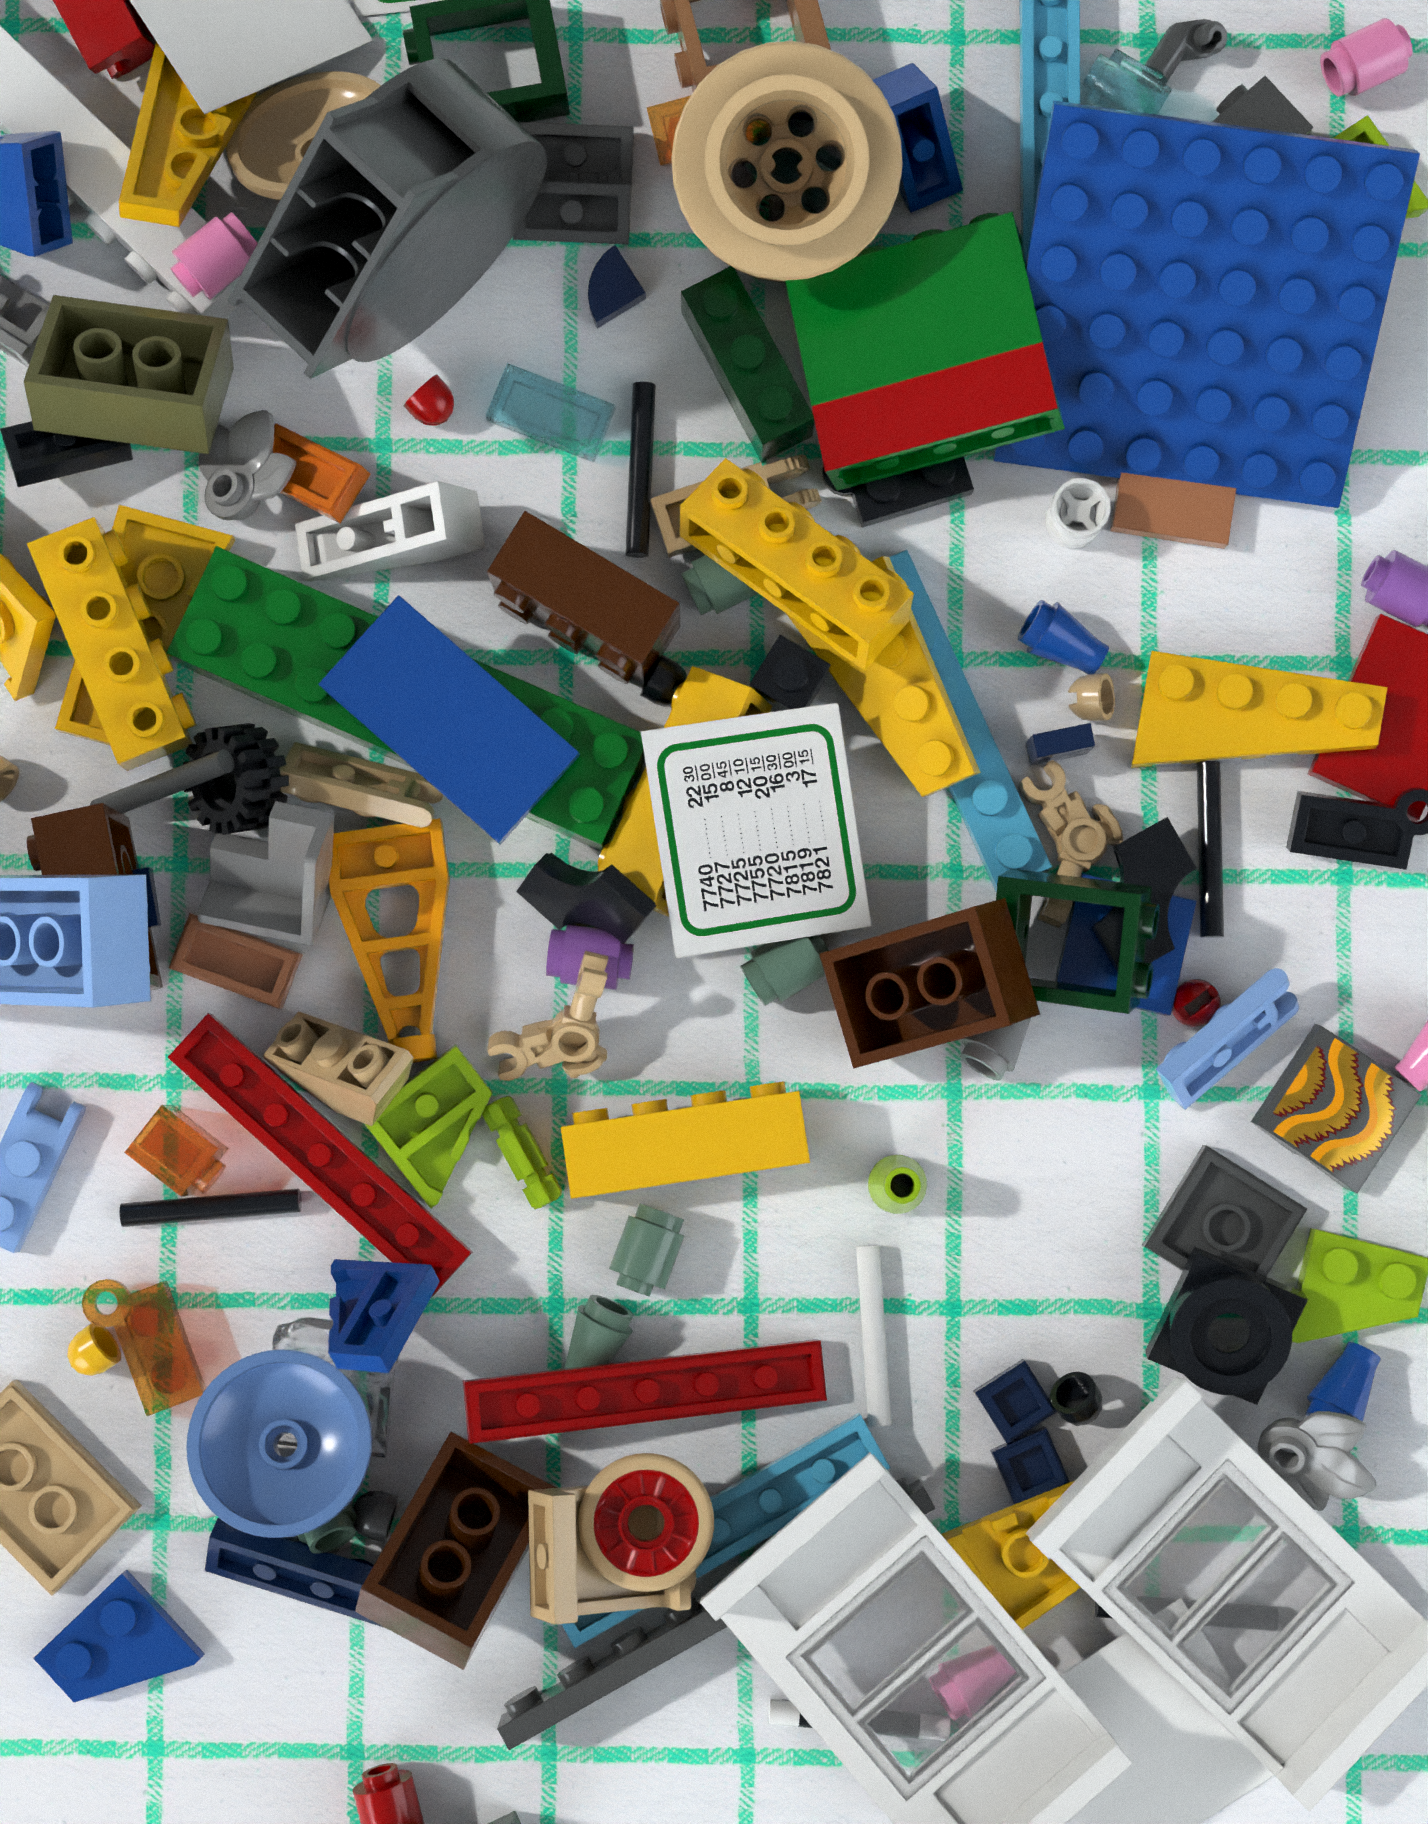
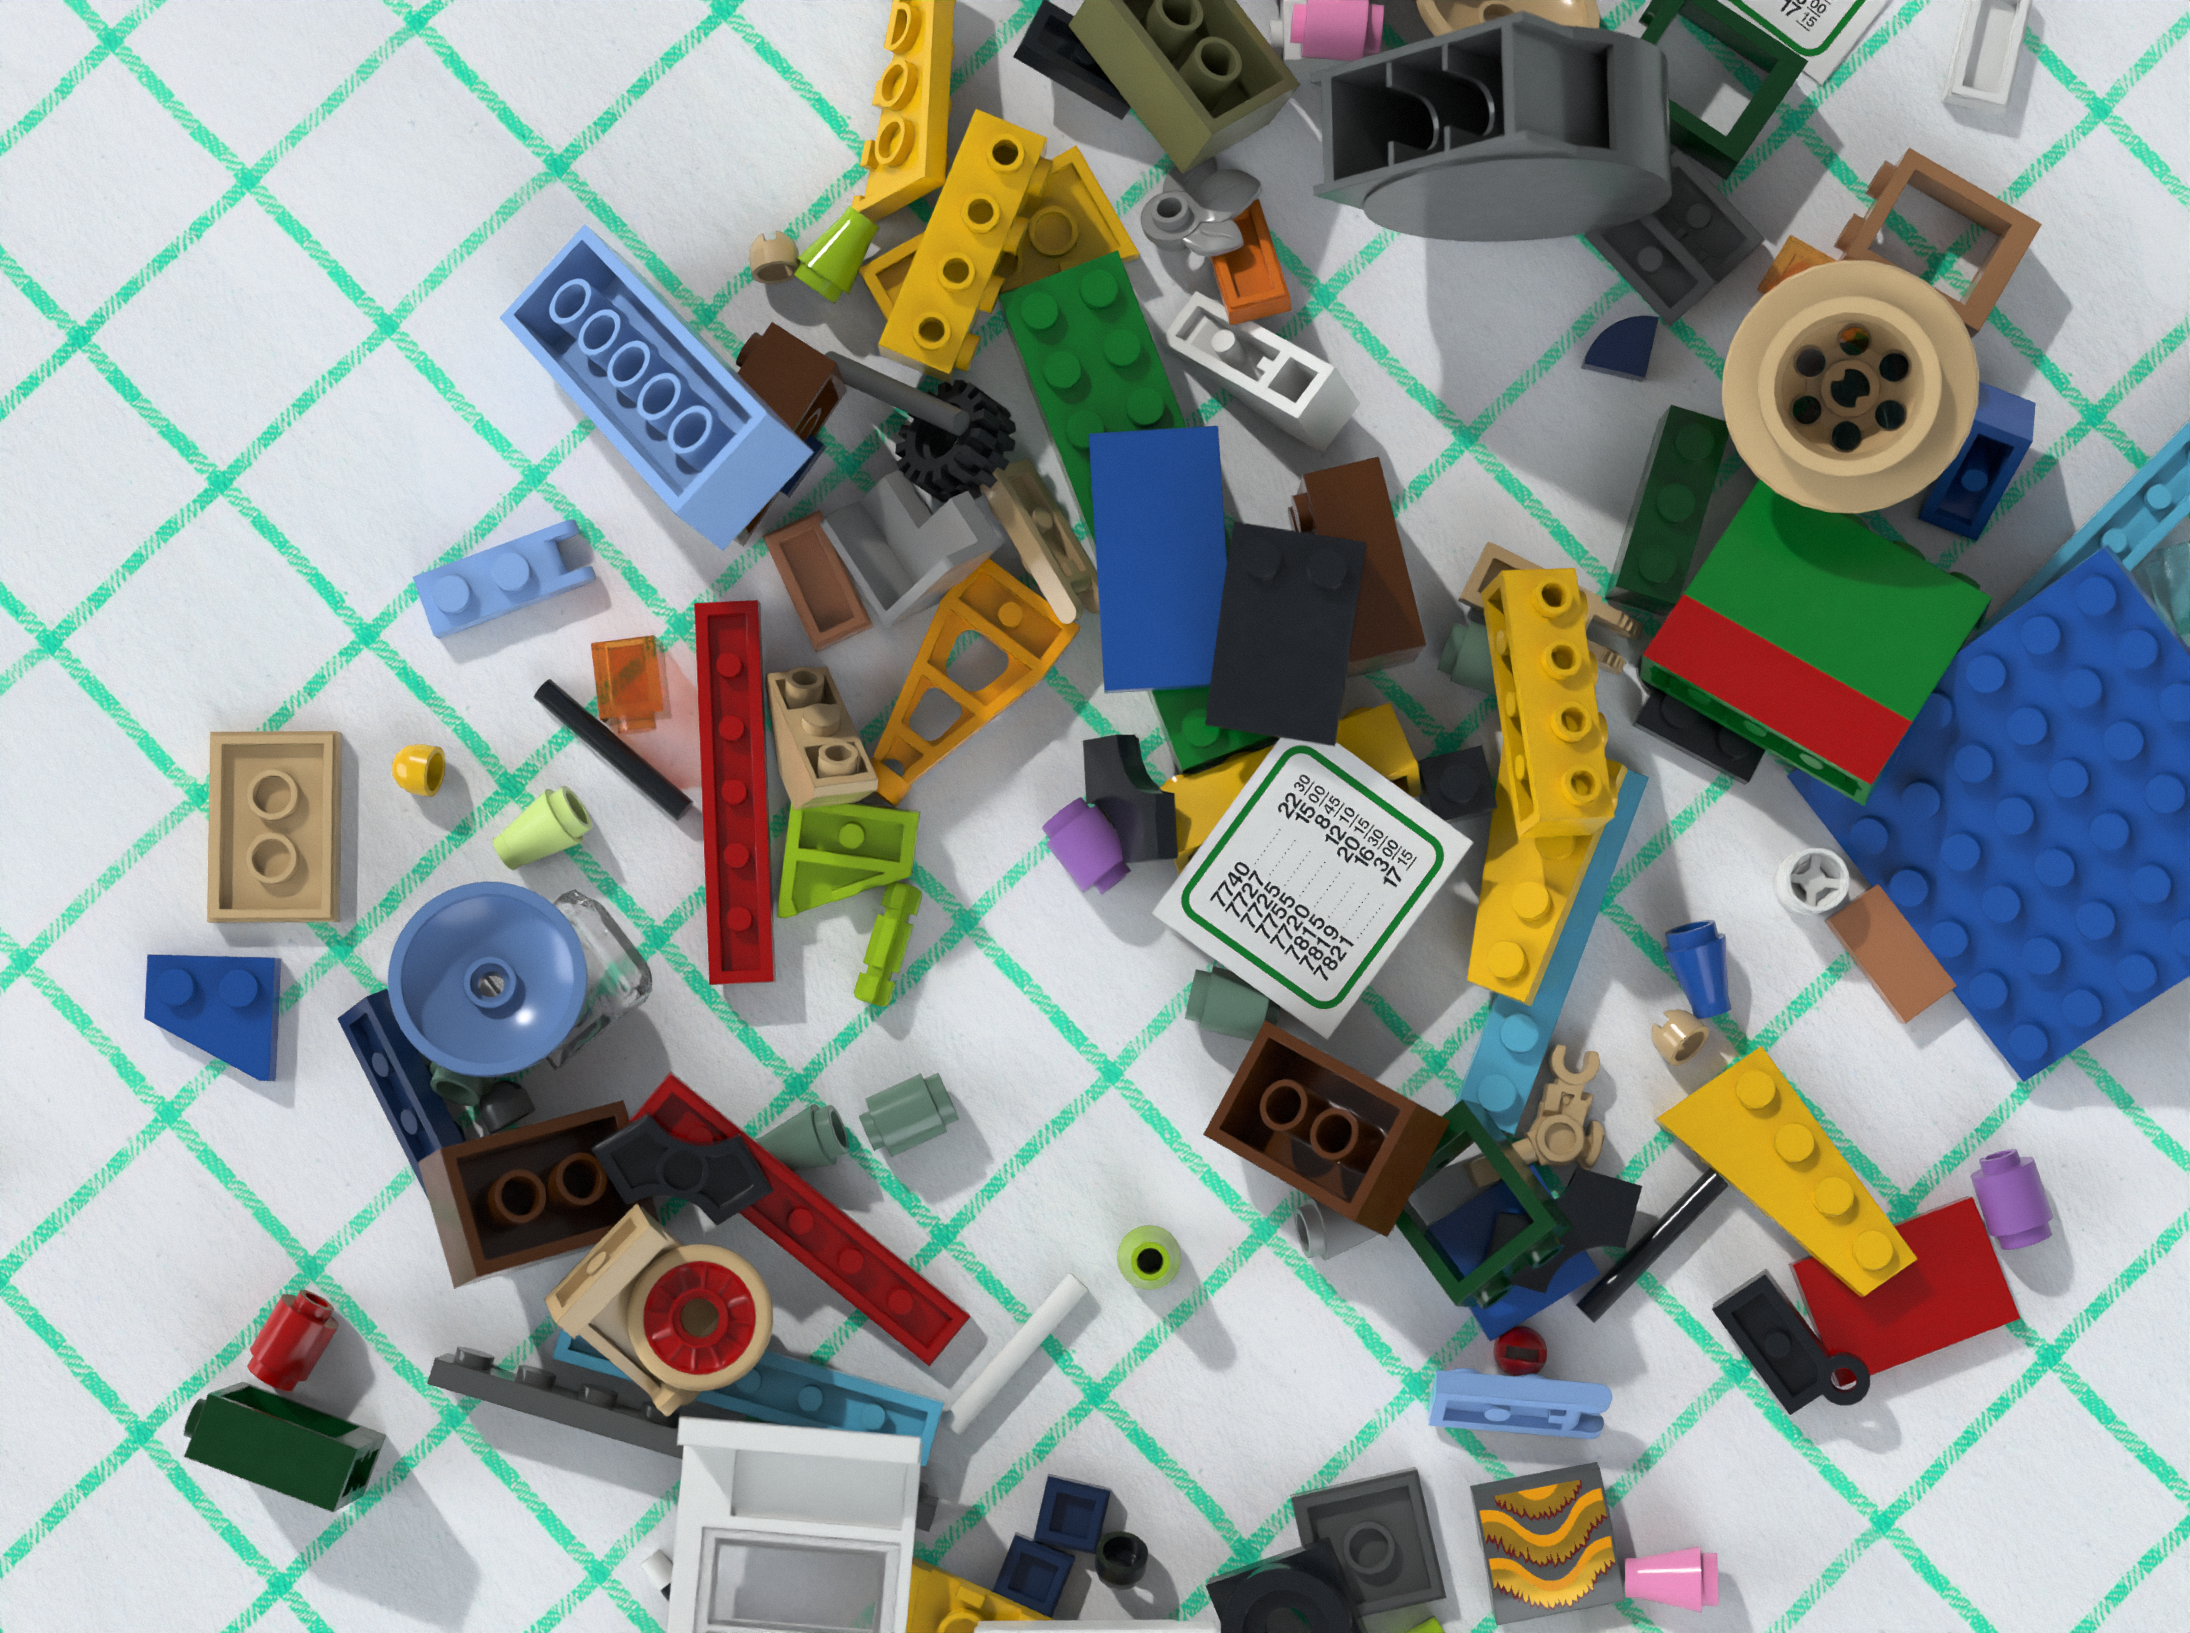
camera: 50 degrees right, 0 degrees up
(31, 733) = (835, 257): none -> lime cone
(151, 1342) = (468, 805): clear orange hinge -> none
(216, 1306) = (543, 828): none -> yellowish green cone
(375, 1311) = (658, 952): blue wing -> none
(431, 402) = (1394, 300): red hinge -> none
(510, 1452) = (653, 1162): none -> black tile
(550, 412) = (1478, 398): clear light blue tile -> none
(567, 1038) = (1009, 891): tan piece -> none
(580, 685) = (1285, 633): none -> black slope
(640, 469) = (1504, 510): black bar -> none
(661, 681) = (1360, 689): black hinge -> none
(684, 1143) = (1017, 1062): yellow brick -> none
(1060, 744) = (1616, 1046): dark blue tile -> none

